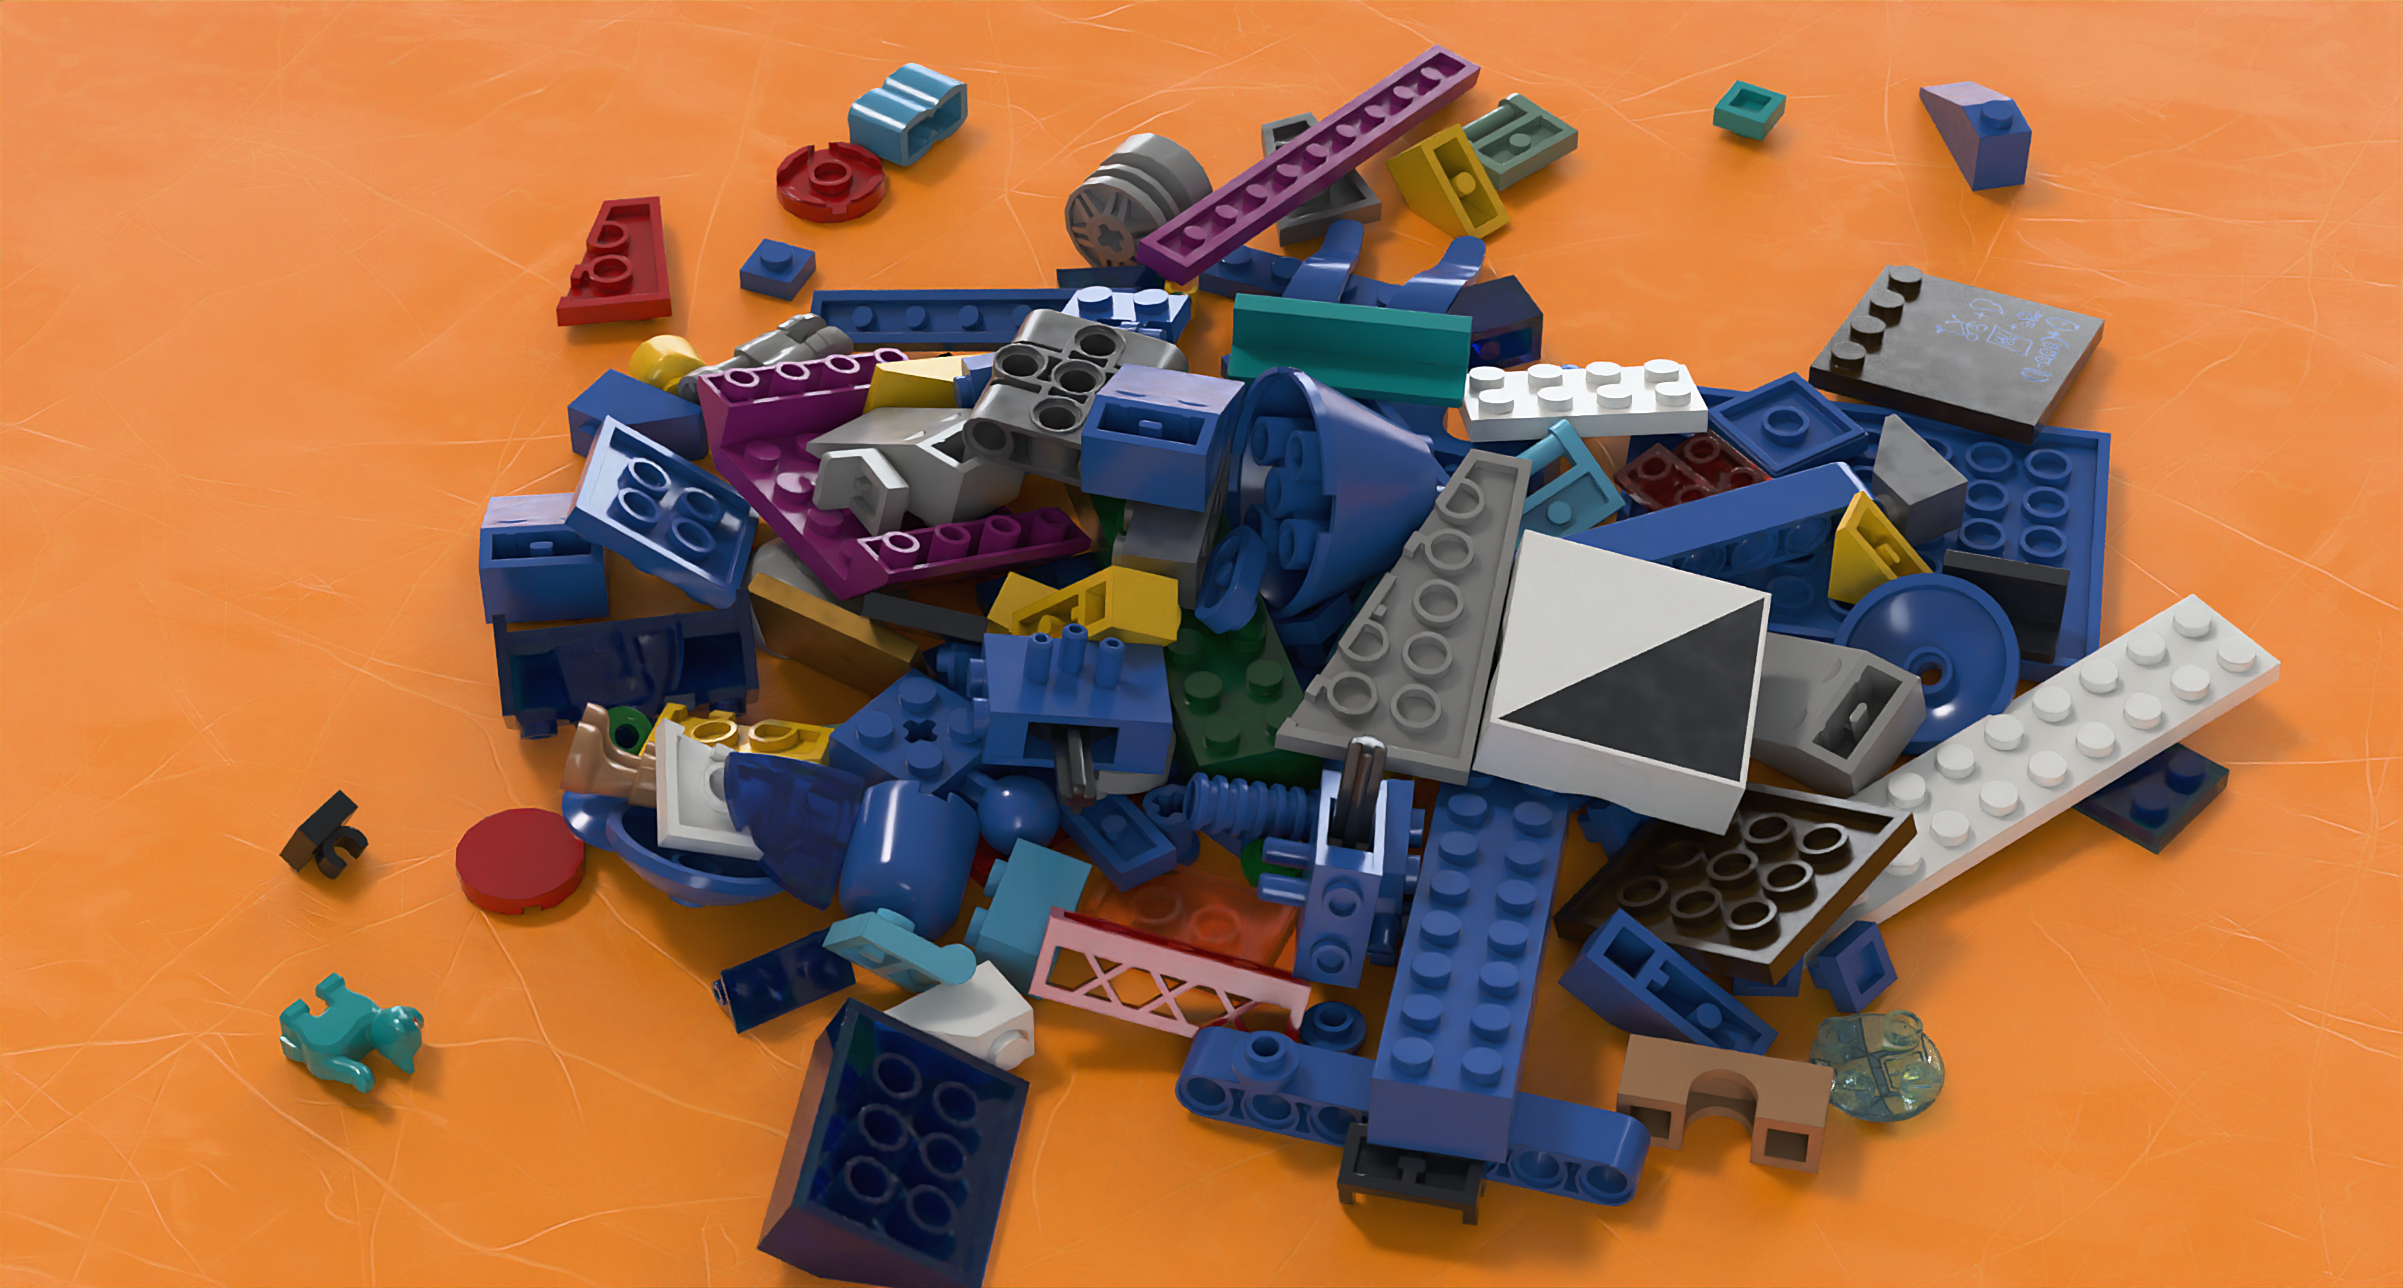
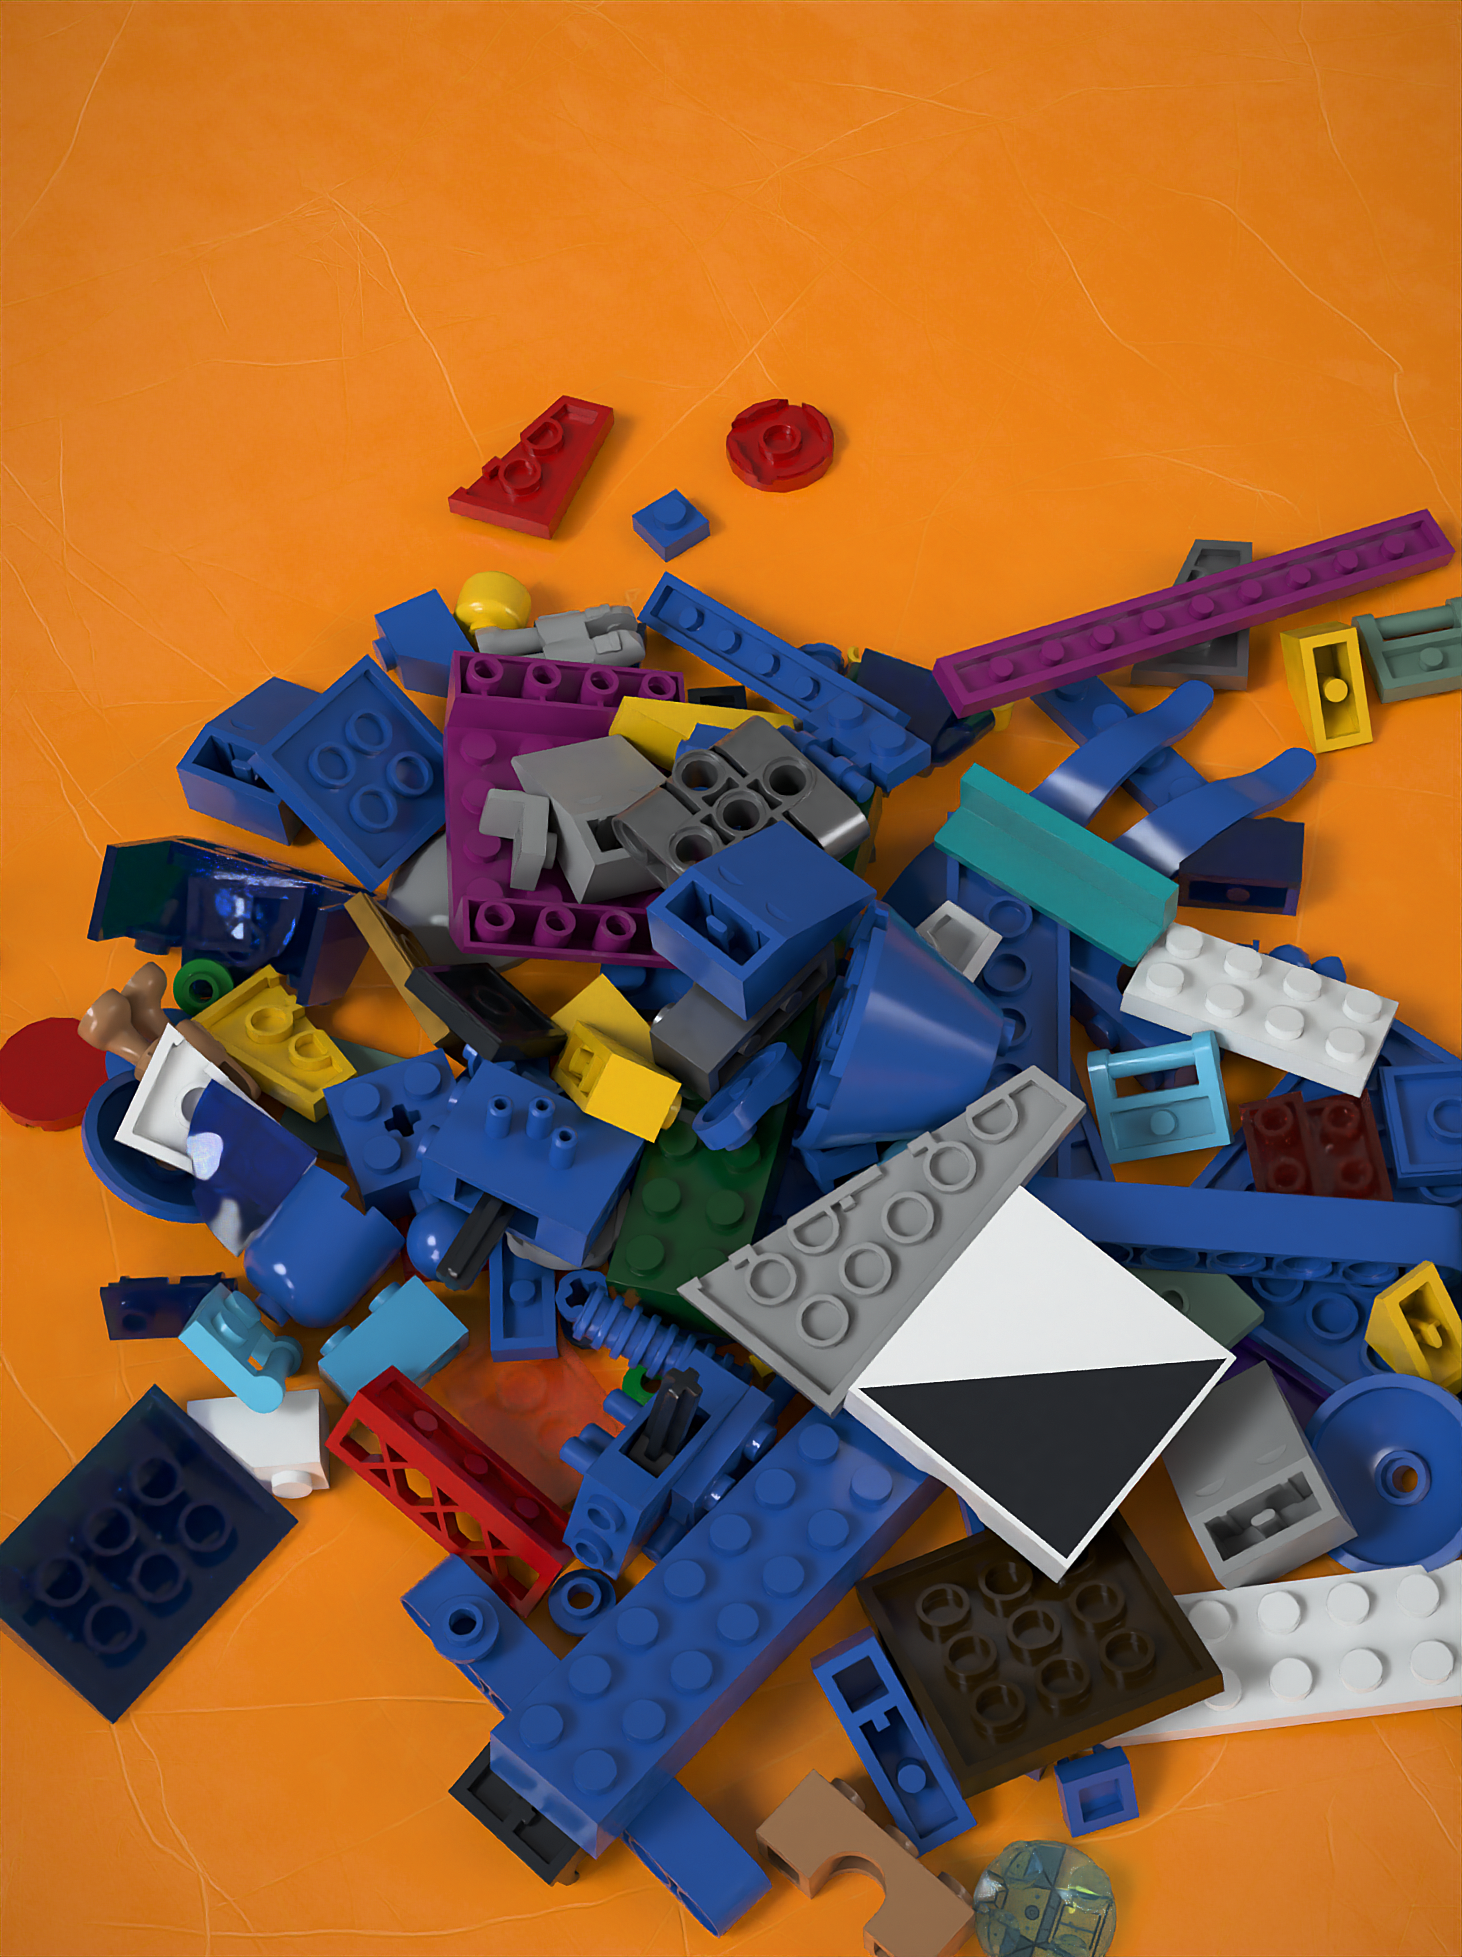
camera: 35 degrees right, 15 degrees up
(908, 114) = (887, 399): dark azure brick -> none
(1131, 196) = (1004, 589): light grey wheel -> none

